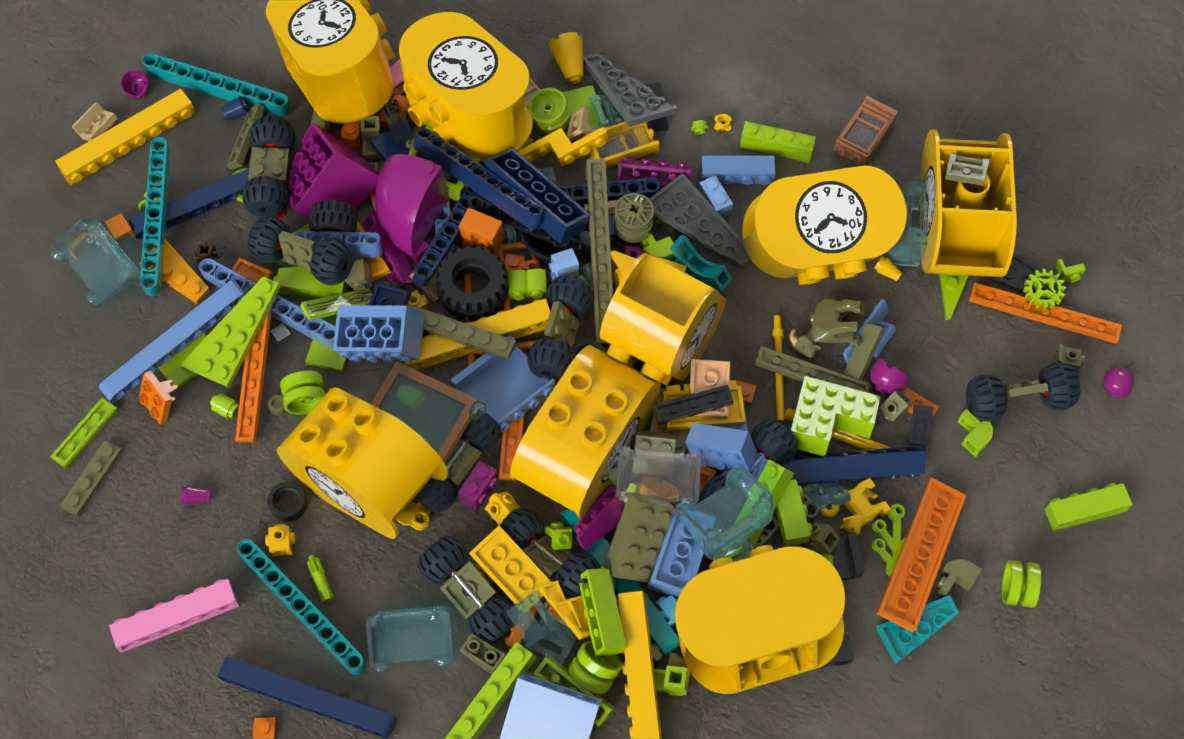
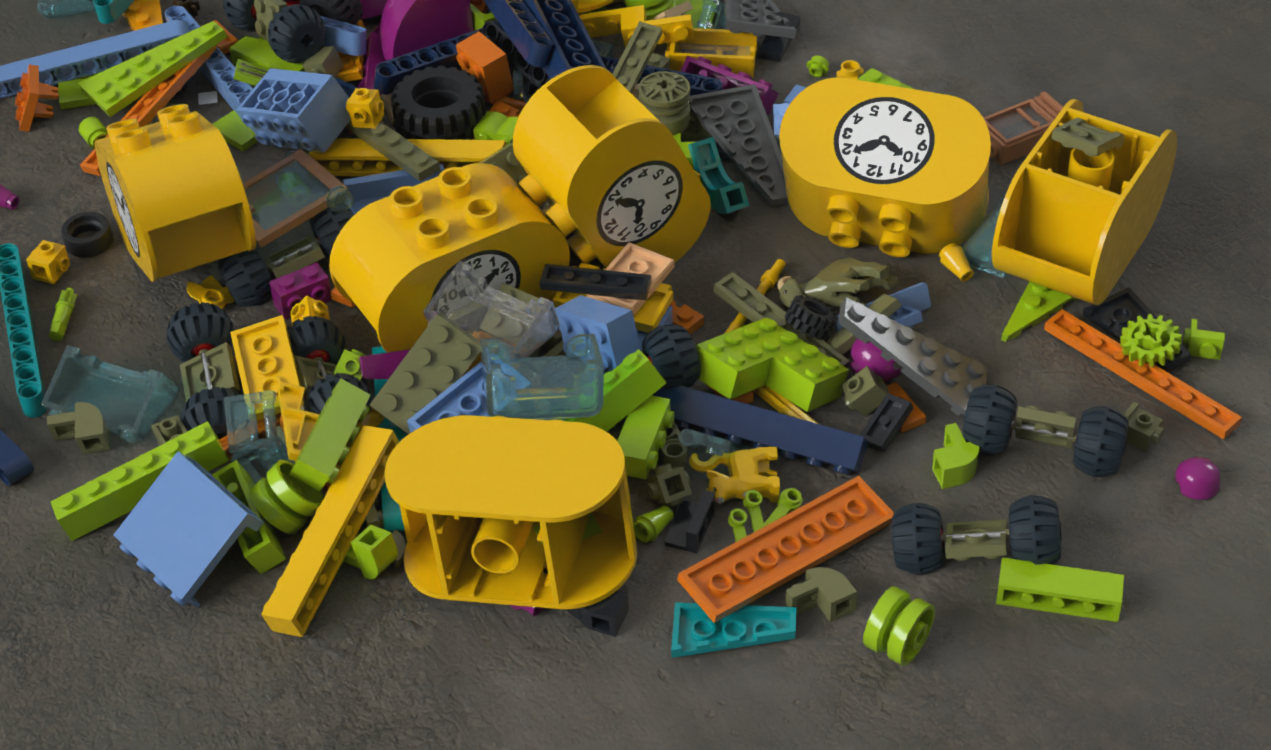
camera: 30 degrees right, 20 degrees down
(411, 665) = (84, 425): none -> olive brick
(434, 315) = (365, 108): none -> yellow brick
(832, 362) = (811, 317): none -> black tyre
(929, 370) = (926, 362): none -> dark grey wing
(1057, 480) = (921, 542): none -> black plate

